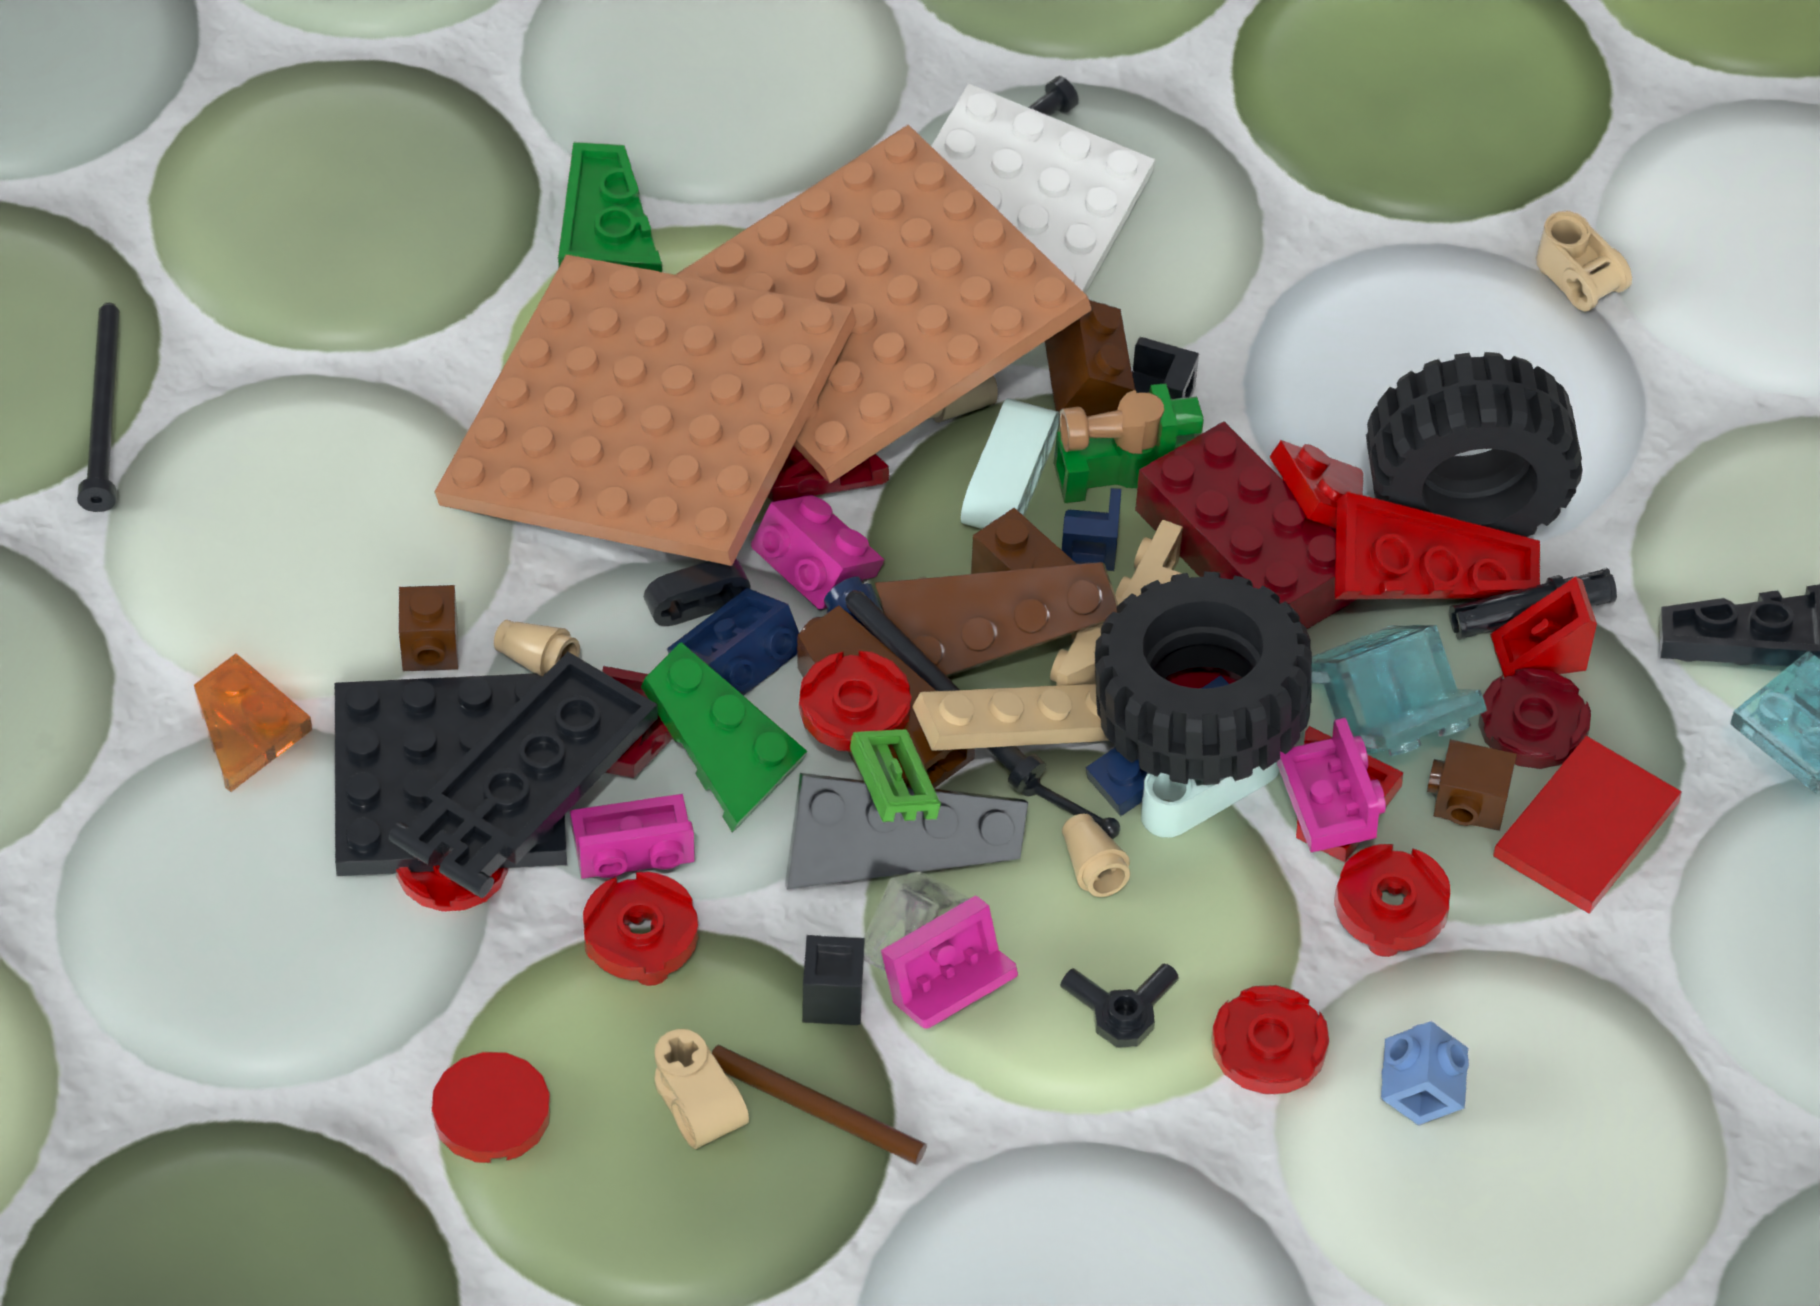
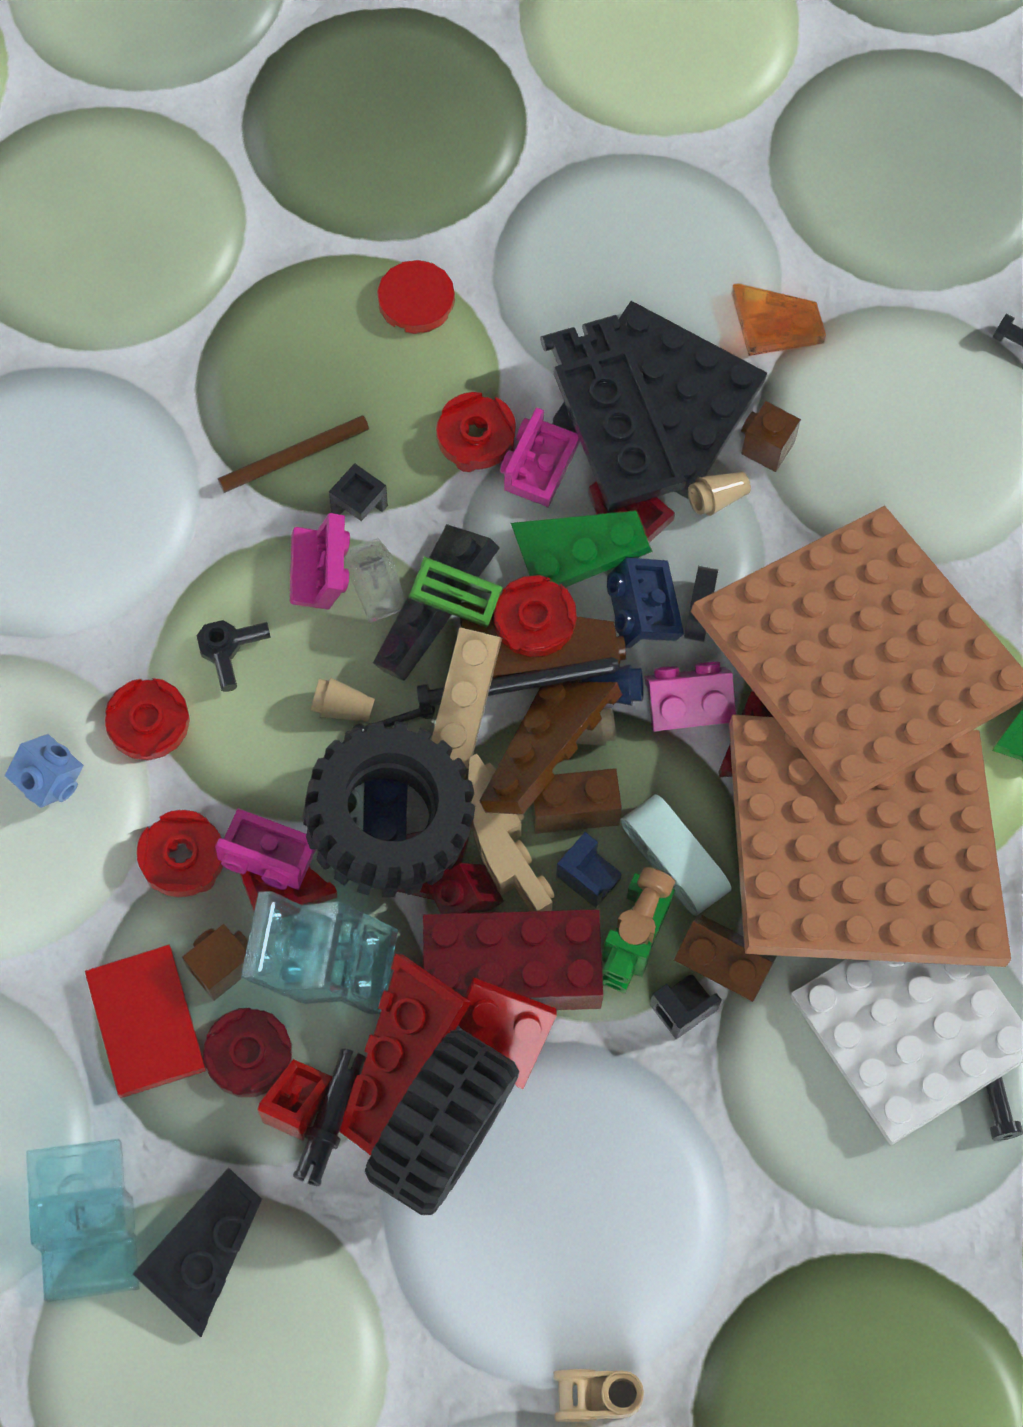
camera: 125 degrees right, 15 degrees up
(697, 1089) = (341, 390): tan piece -> none

